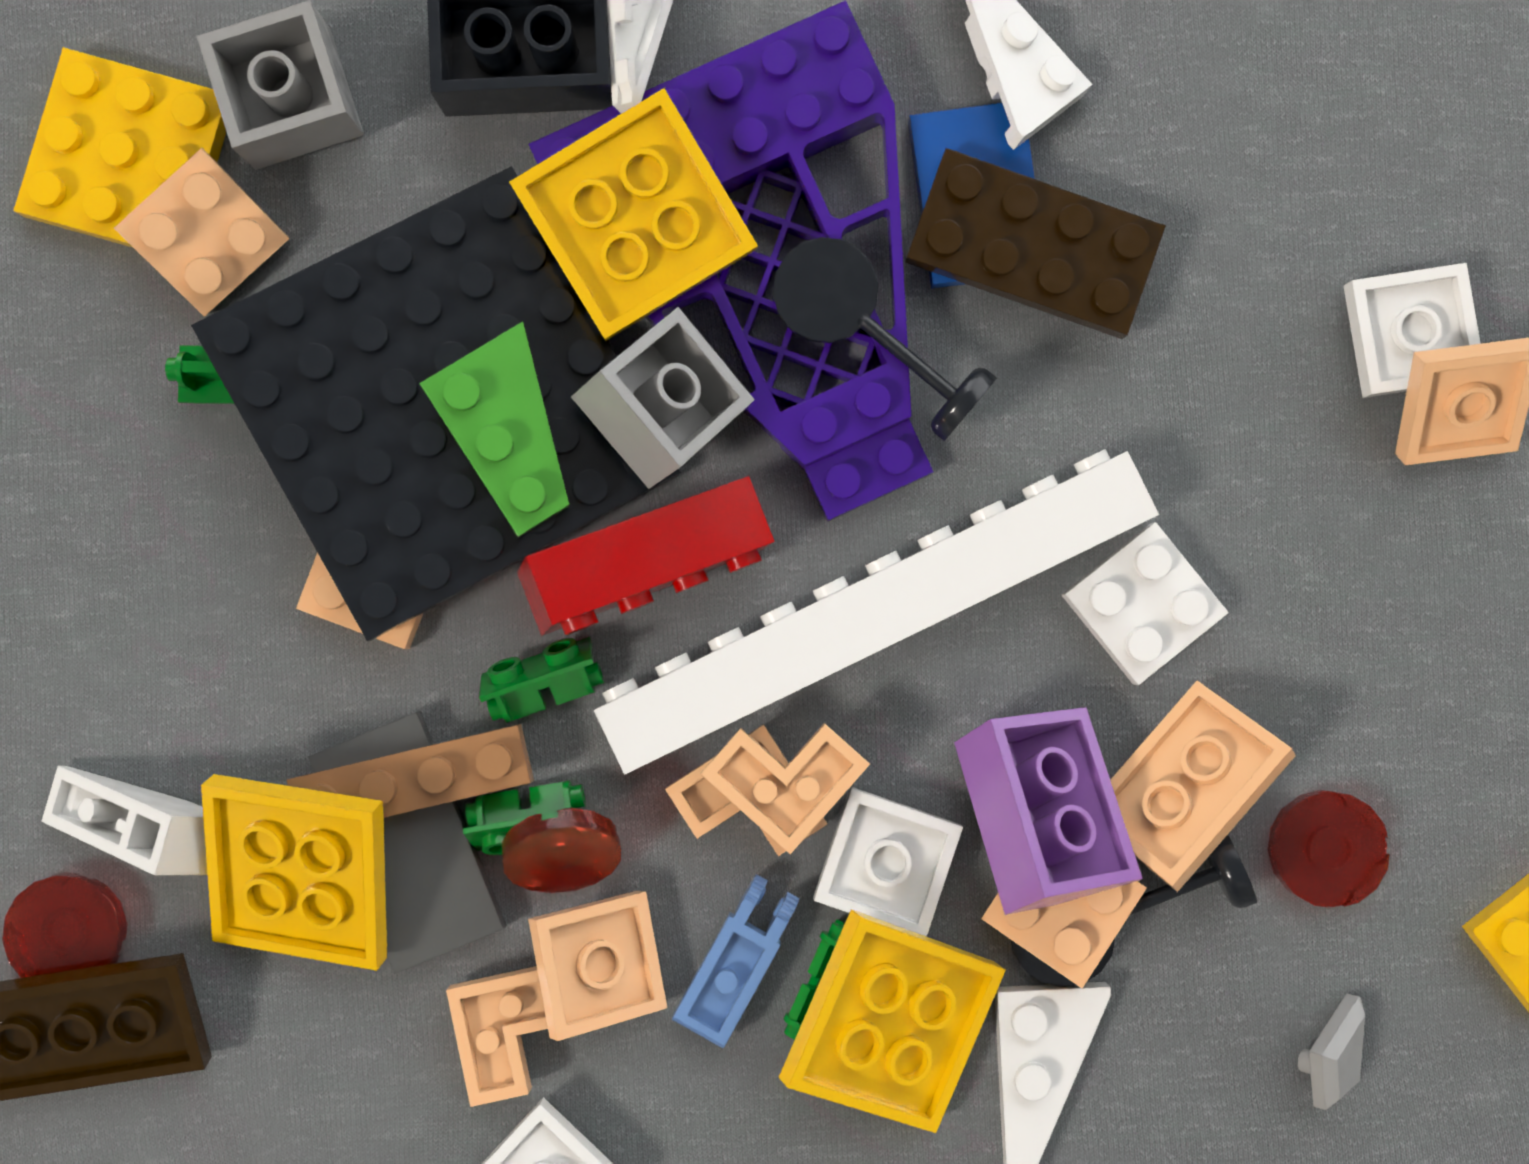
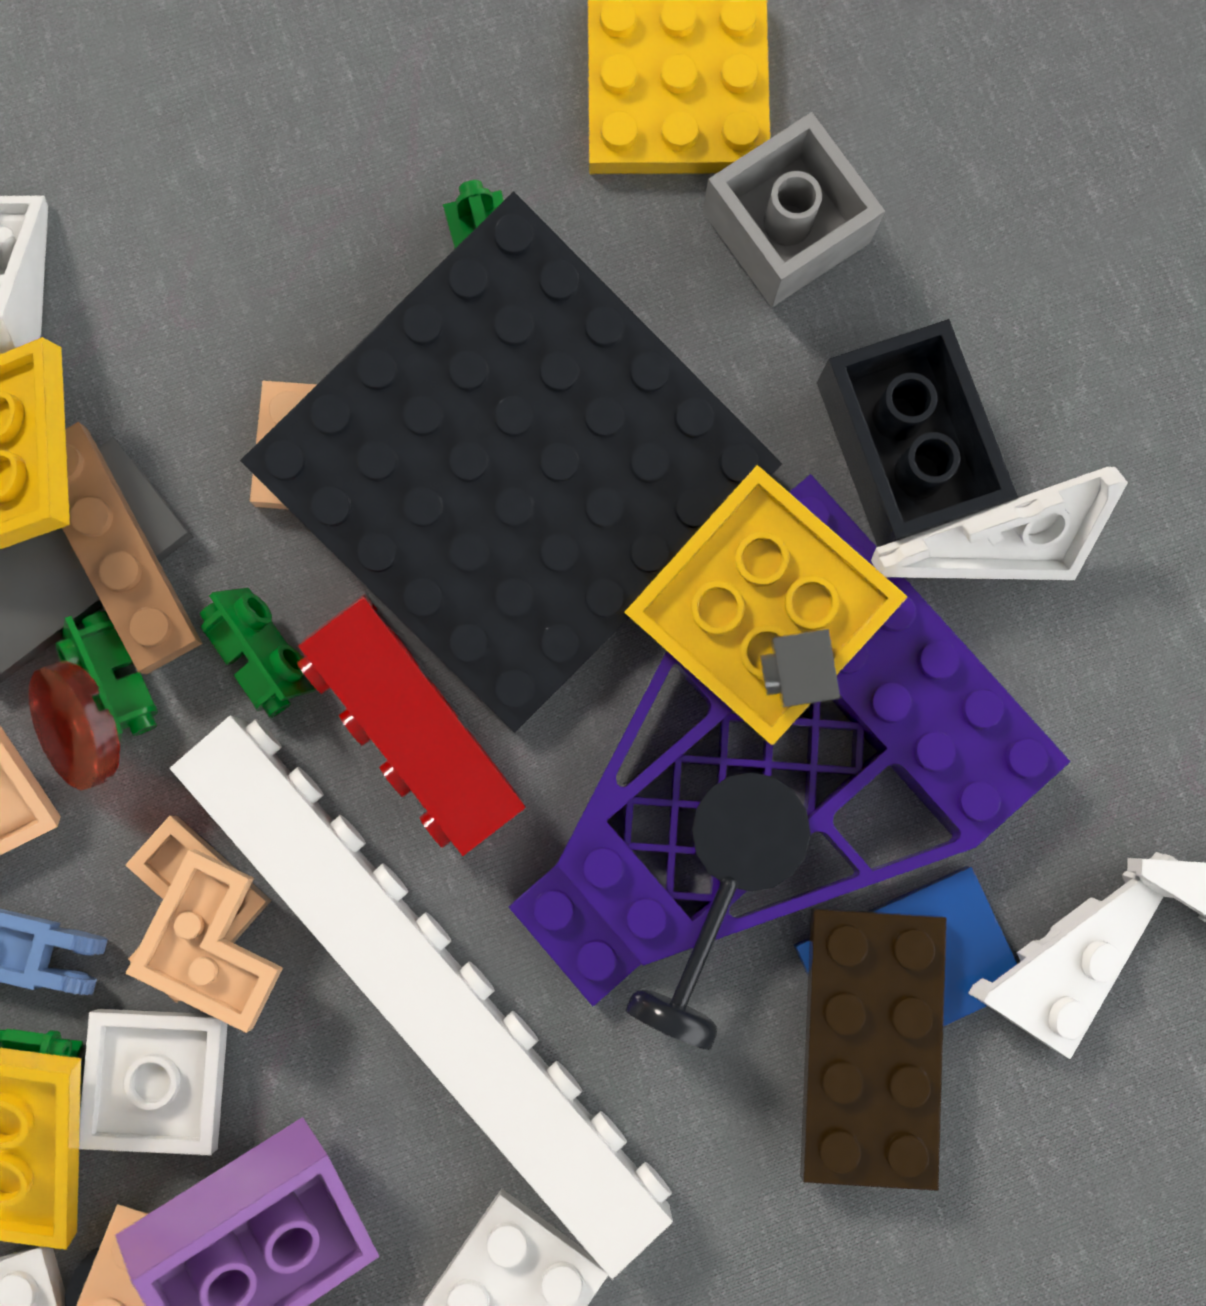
camera: 70 degrees right, 5 degrees down
(202, 232) = (619, 177): light nougat plate -> none
(503, 428) = (499, 533): bright green wing -> none
(663, 398) = (579, 693): light grey brick -> none
(700, 196) = (801, 669): none -> dark grey plate

